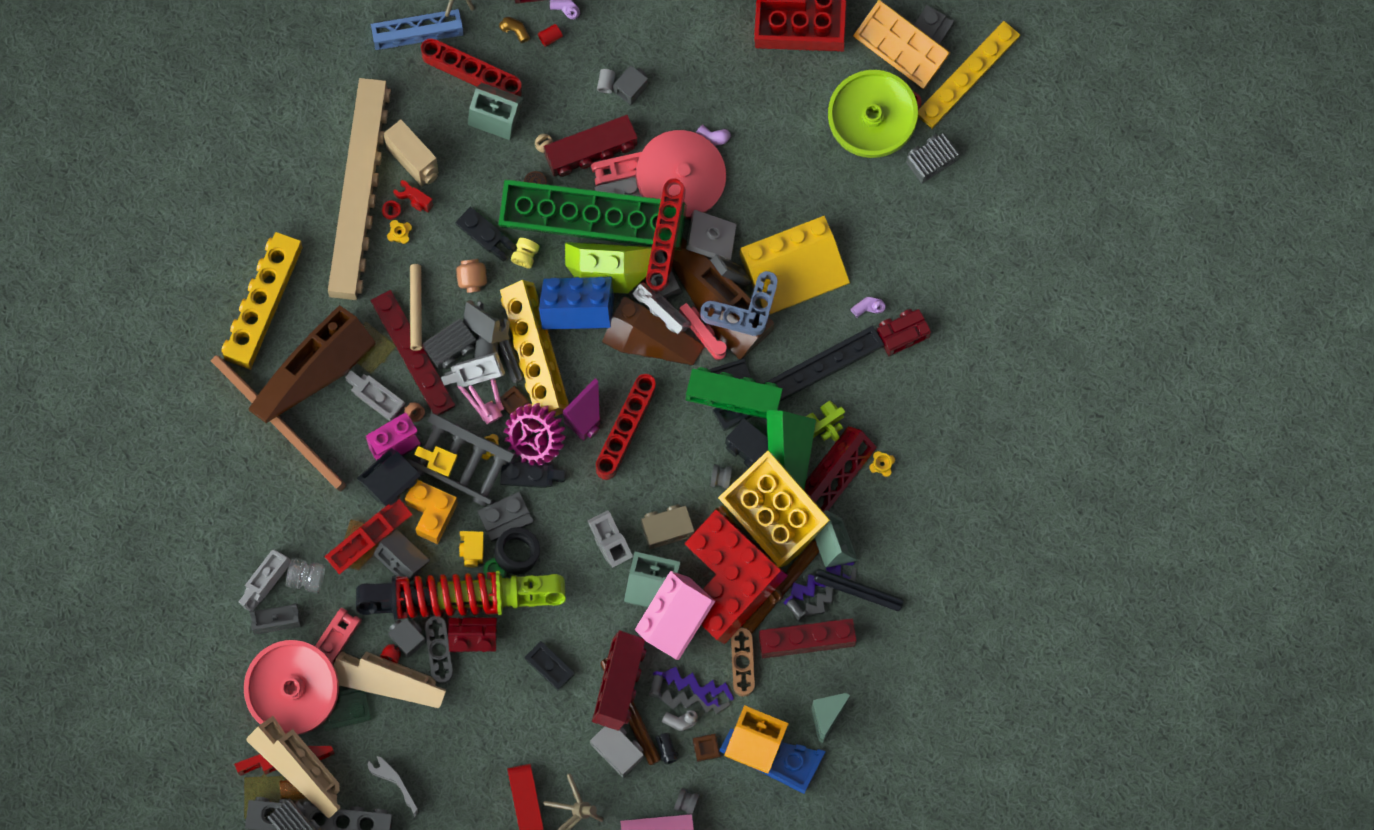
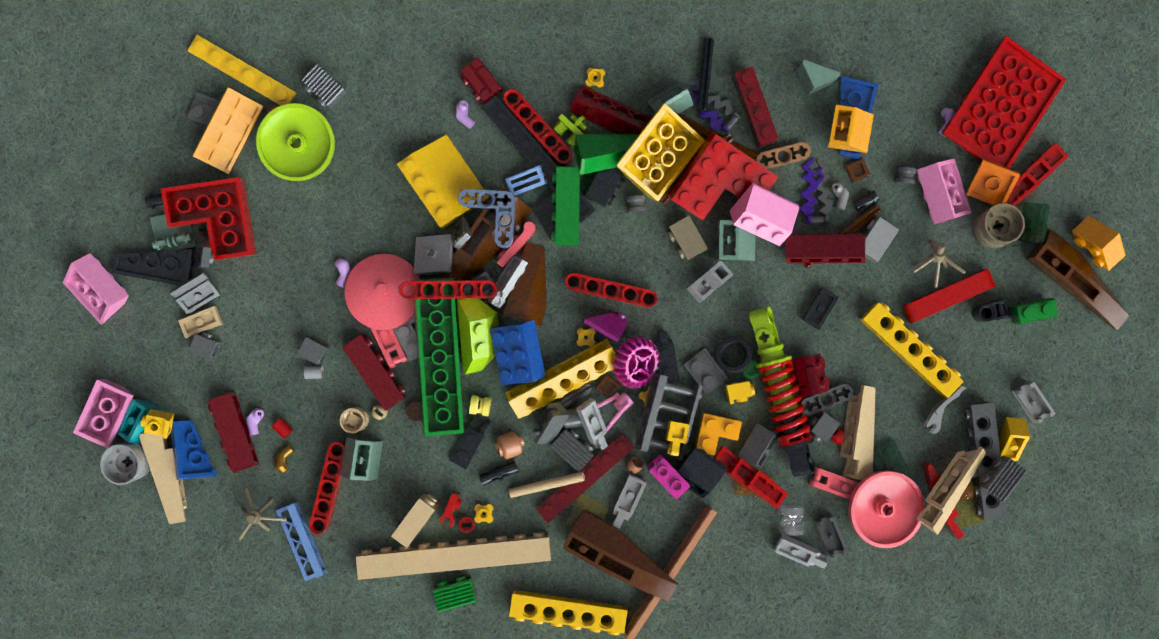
camera: 100 degrees left, 15 degrees up
(315, 180) = (454, 593): none -> green brick
(441, 258) = (498, 473): none -> black pin
(520, 722) = (951, 378): none -> yellow brick
(541, 112) = (354, 419): none -> tan wheel
(572, 384) = (581, 333): none -> yellow plate
(777, 373) = (540, 175): none -> light blue tile
(840, 375) = (534, 119): none -> red beam

